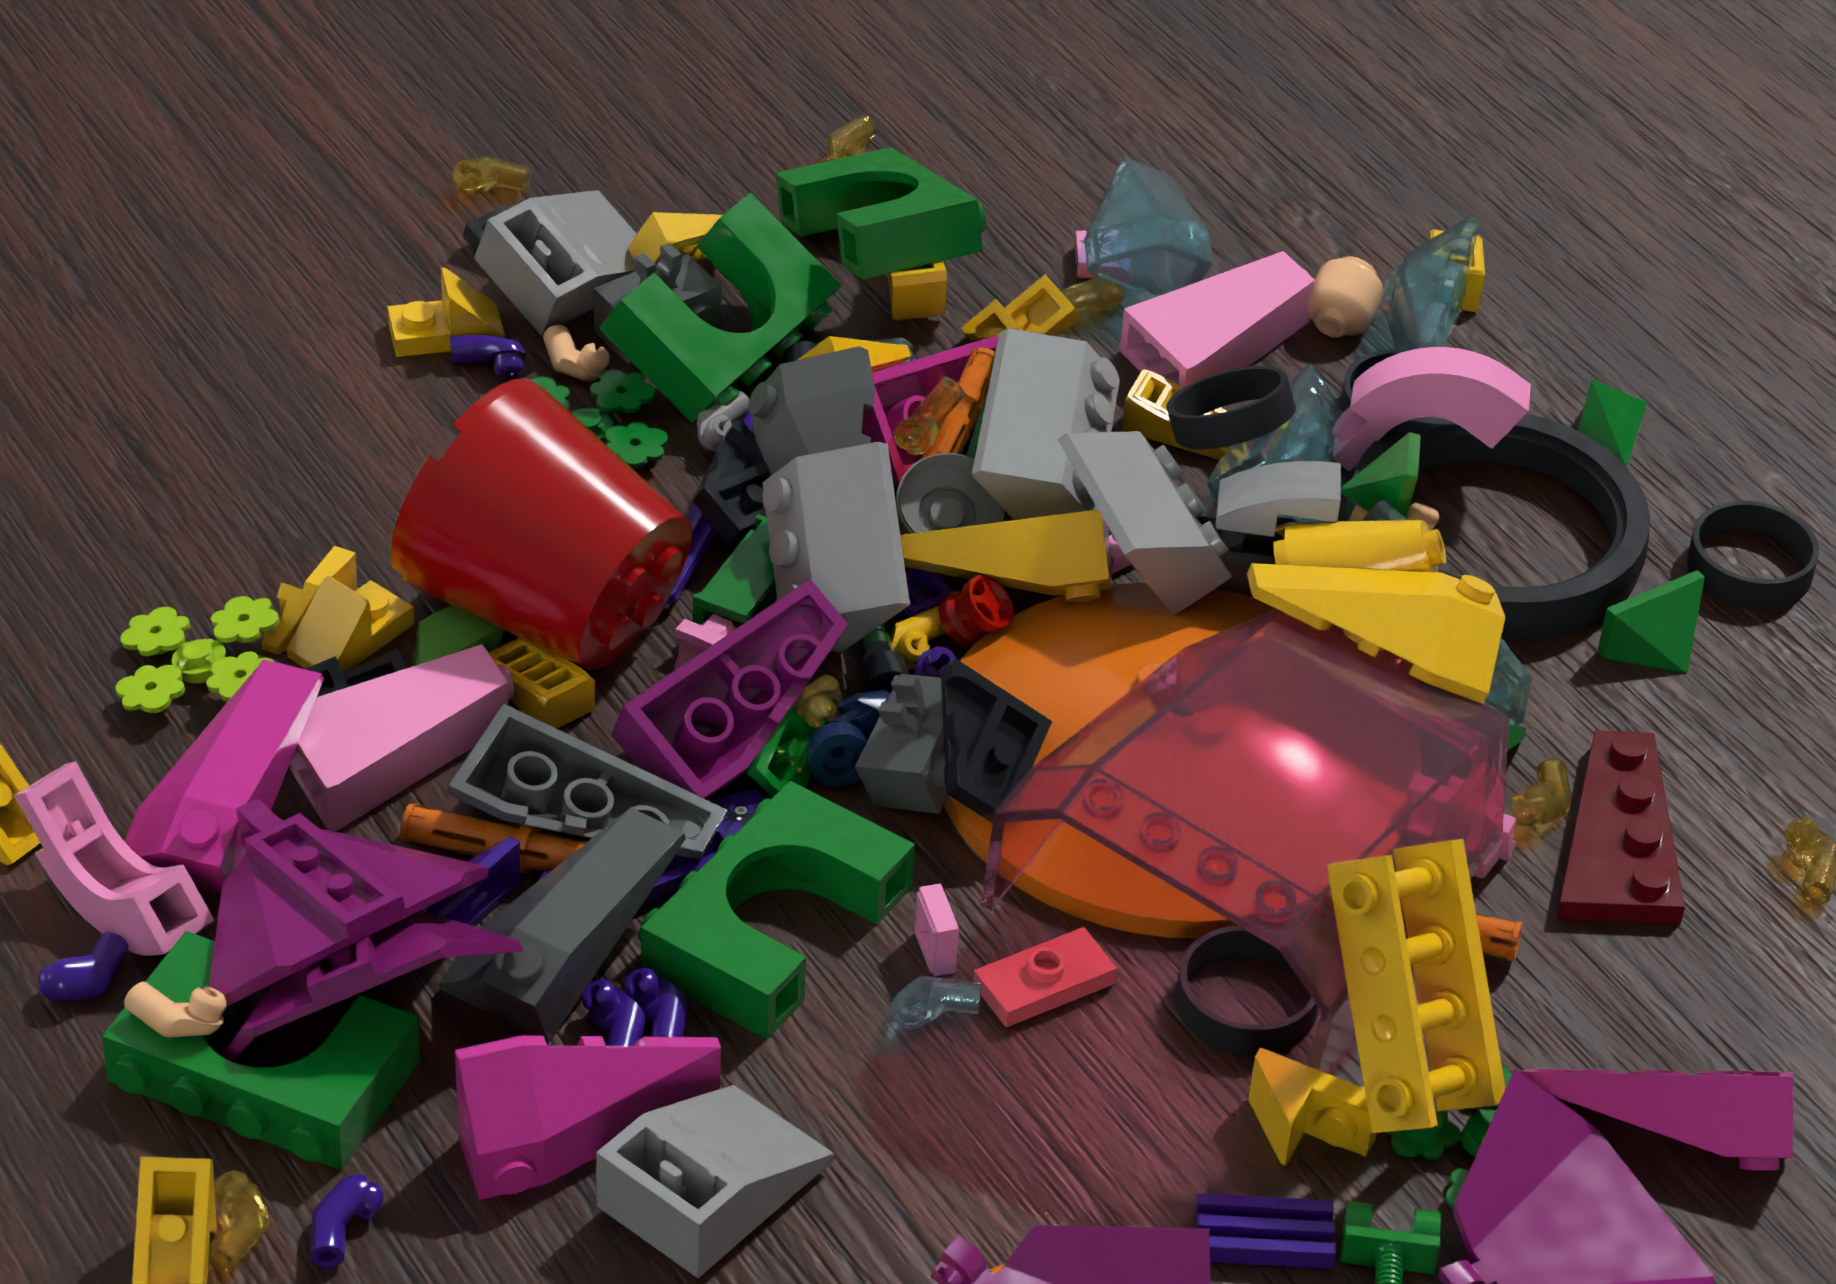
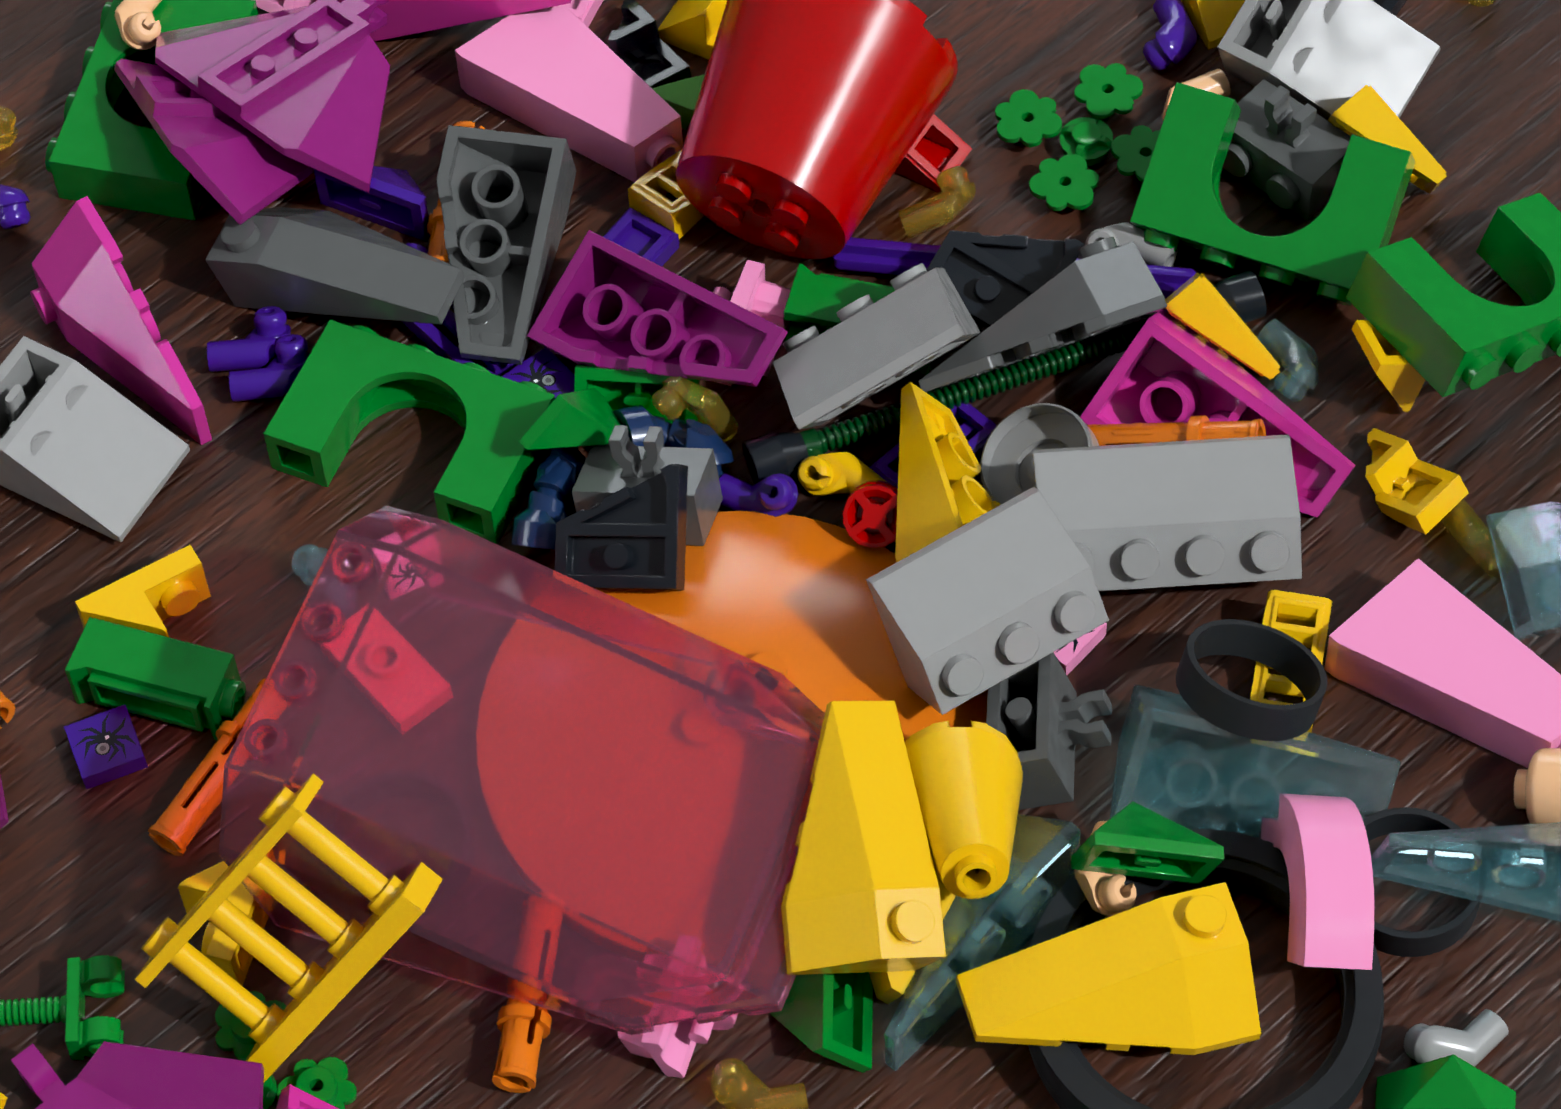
camera: 85 degrees right, 15 degrees up
(592, 724) = (644, 237): none -> dark purple tile
(833, 768) = (572, 421): none -> green slope
(921, 429) = (1142, 408): clear yellow arm -> none
(922, 823) = (547, 506): none -> dark blue arm
(936, 1139) = (150, 594): none -> yellow slope
(1023, 1137) = (155, 676): none -> green window
(1082, 1196) = (105, 746): none -> dark purple tile
(1114, 1090) = (202, 790): none -> orange pin
(1265, 1222) = (85, 856): dark purple tile -> none
(1296, 489) = (1043, 724): light grey slope -> none
(1500, 522) = (1144, 977): none -> yellow wedge
(1551, 400) = (1471, 1044): none -> light grey arm

